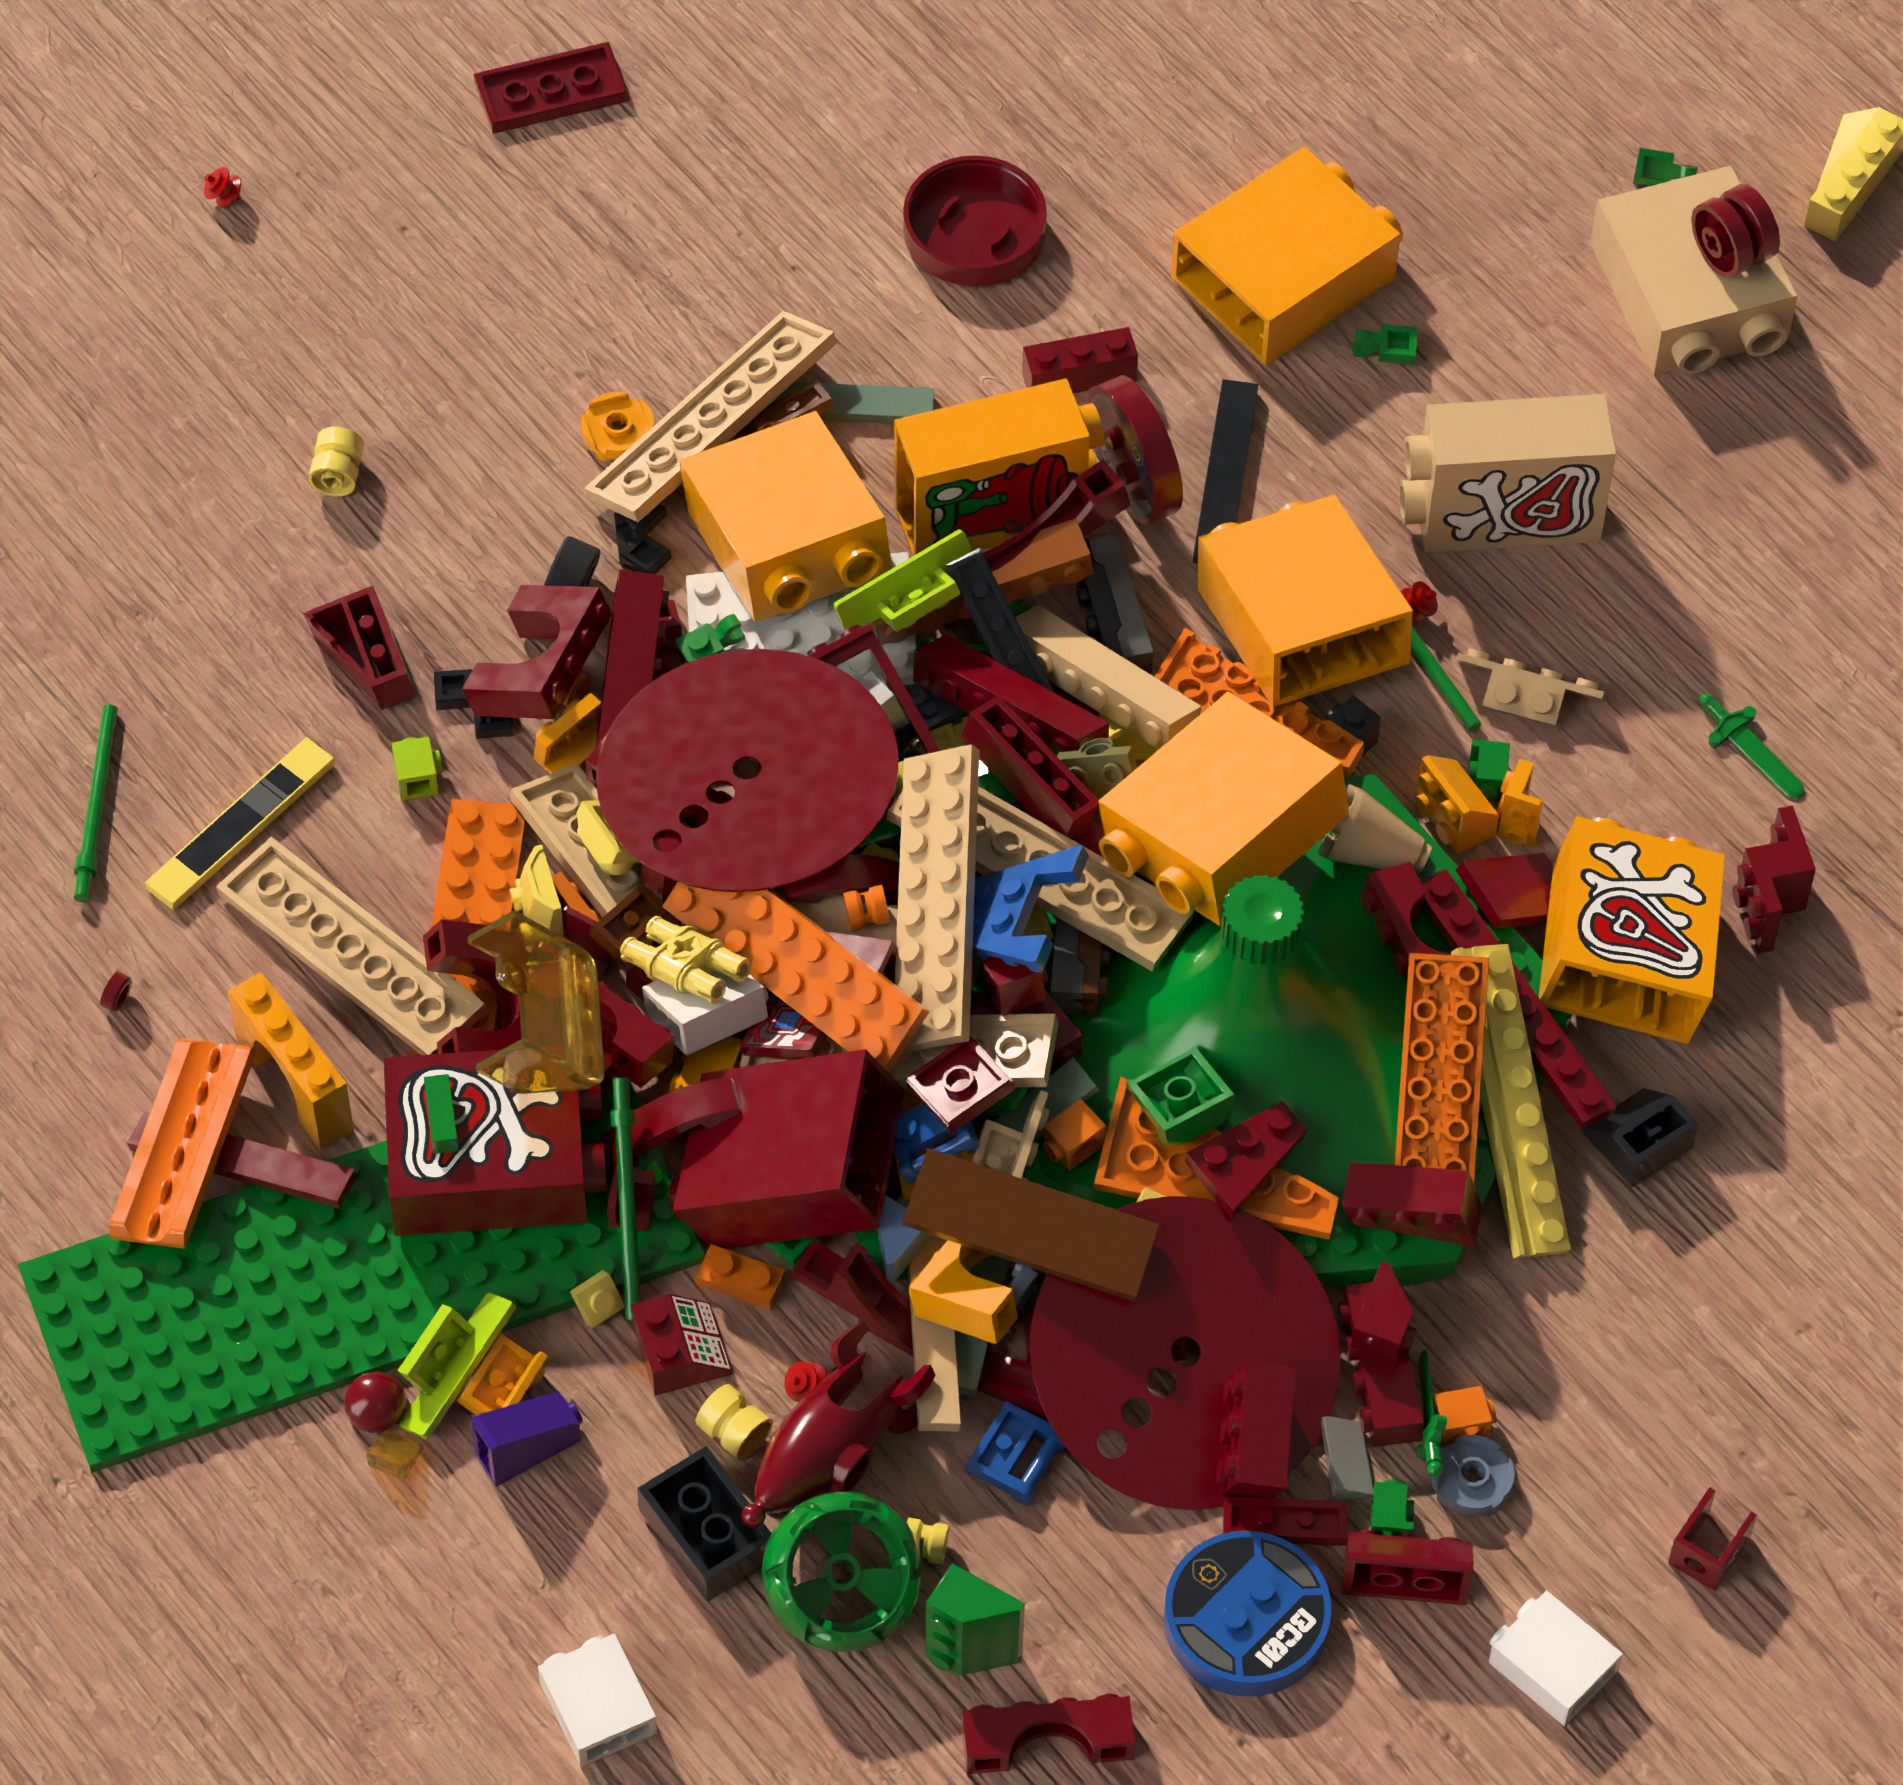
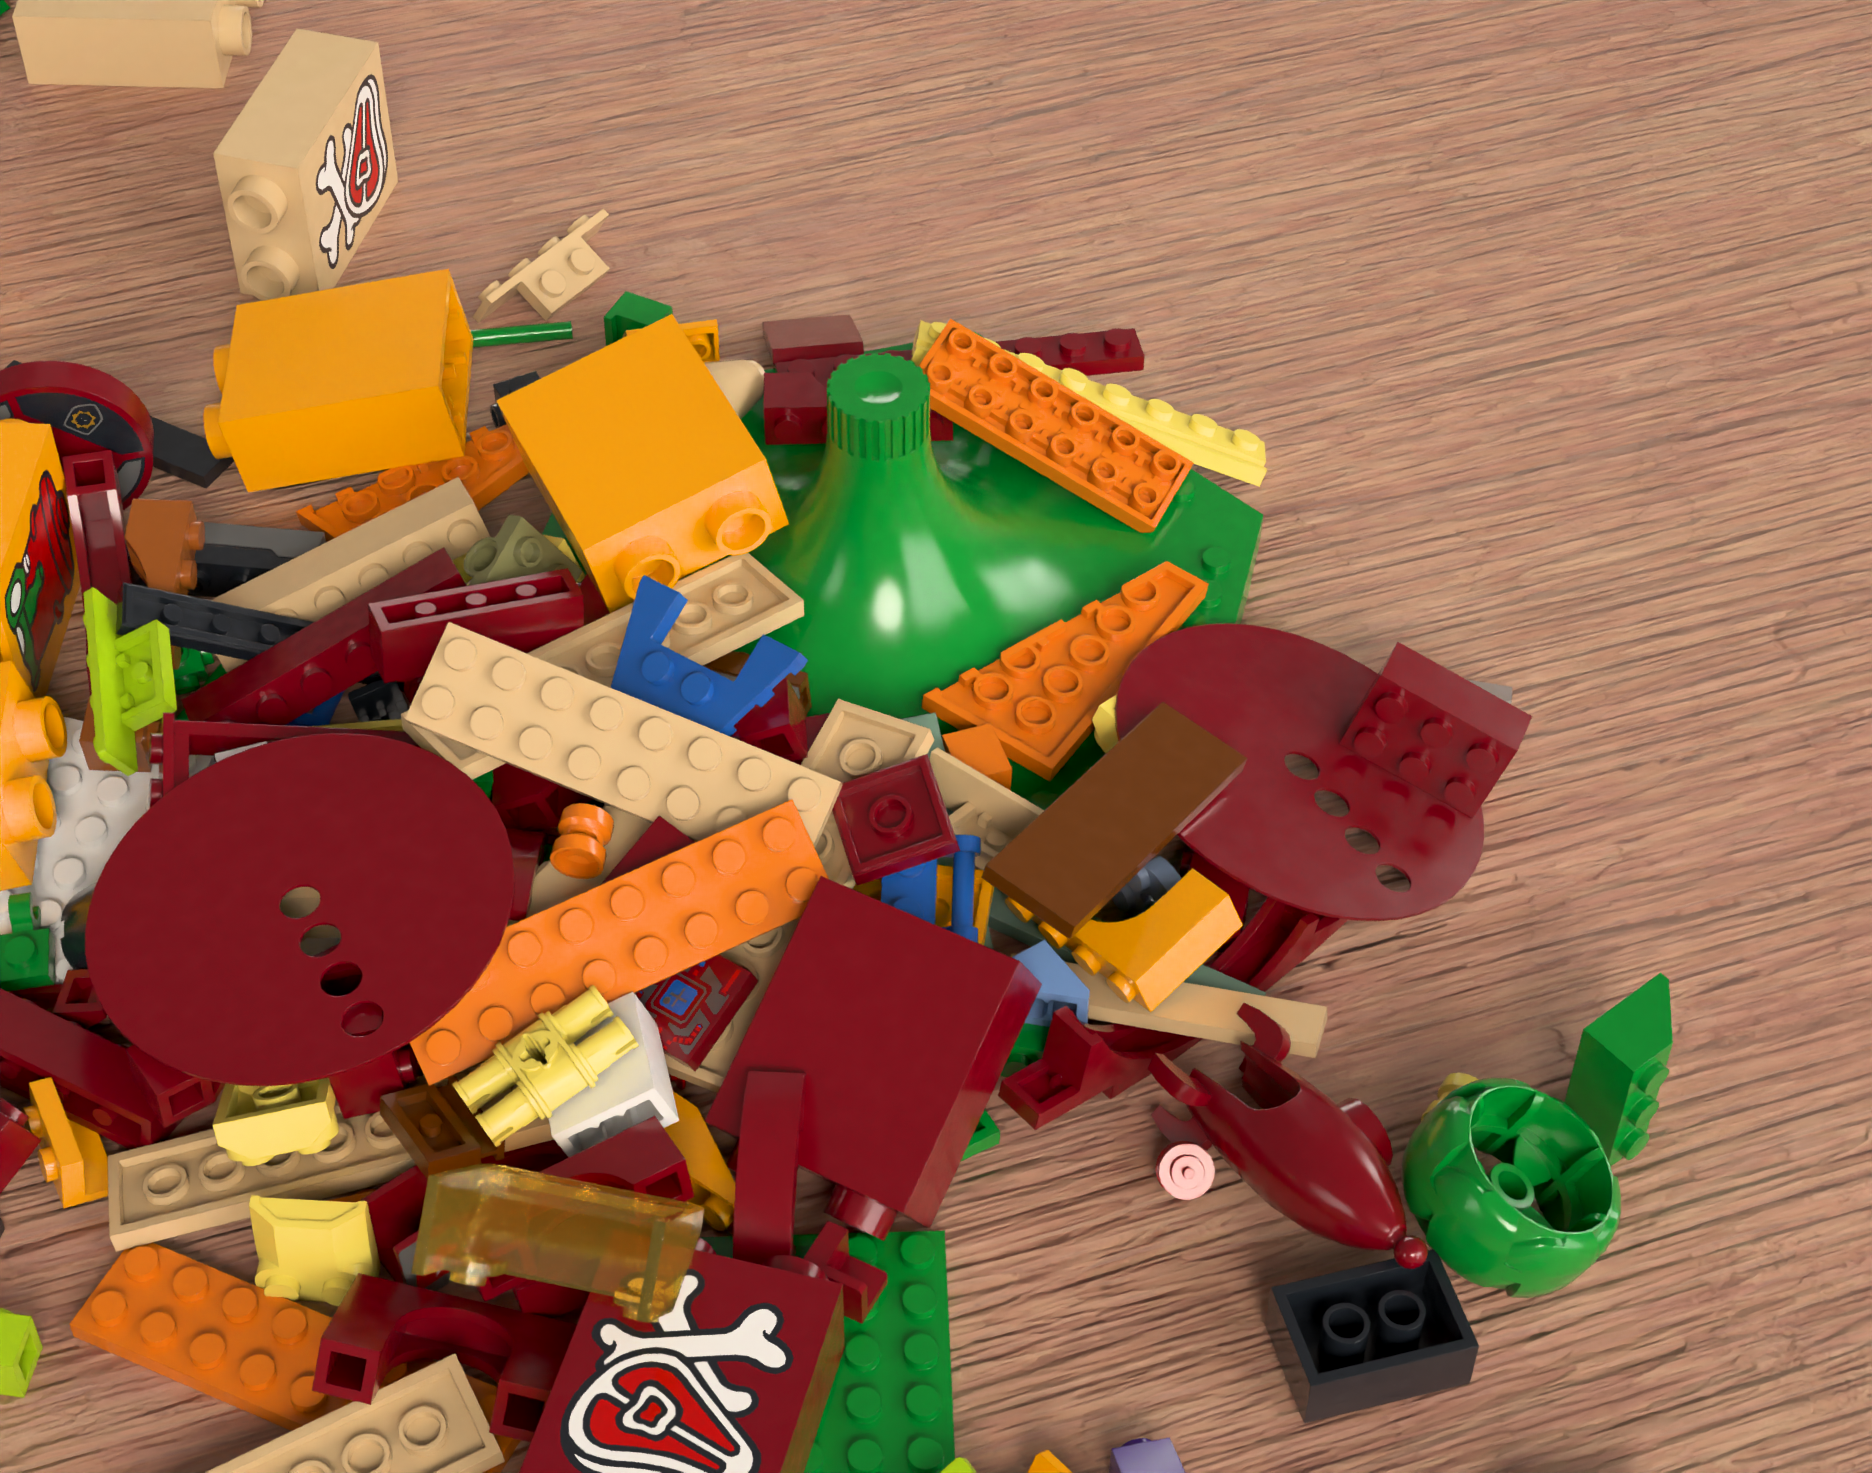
camera: 70 degrees left, 10 degrees down
(441, 1114) = (658, 1421): green piece -> none
(597, 1299) = (967, 1371): light yellow plate -> none
(622, 1119) = (760, 1211): green bar -> none
(679, 1342) = (1071, 1305): dark red slope -> none
(738, 1426) = (1224, 1262): light yellow wheel -> none
(740, 1277) = (989, 1205): orange plate -> none
(1005, 1446) = (1351, 999): blue plate -> none
(1097, 1725) = (1758, 1116): dark red arch -> none
(1183, 1098) = (993, 633): green slope -> none
(1243, 1156) = (1088, 615): dark red wing -> none
(1247, 1613) = (1642, 835): piece -> none
(1290, 1519) = (1527, 779): dark red plate -> none
(1384, 1319) = (1321, 580): dark red slope -> none
(1386, 1388) = (1357, 619): dark red brick -> none
(1390, 1508) = (1549, 673): green brick -> none
(1391, 343) = (41, 244): green plate -> none
(1407, 1567) = (1626, 671): dark red slope -> none
(1413, 1201) = (1199, 498): dark red wedge -> none
(1434, 1424) = (1468, 604): green sword -> none
(1466, 1413) = (1445, 581): orange brick -> none
(1478, 1497) = (1523, 618): sand blue plate -> none
(1518, 810) = (709, 297): light orange bracket -> none
(1554, 1657) = (1768, 594): white brick -> none
(1632, 929) = (919, 248): light orange brick -> none
(1644, 1134) = (1168, 336): black slope -> none
(1715, 1568) = (1660, 436): dark red piece -> none
(1734, 727) = (687, 154): green sword -> none
(1774, 880) = (910, 169): dark red bracket -> none

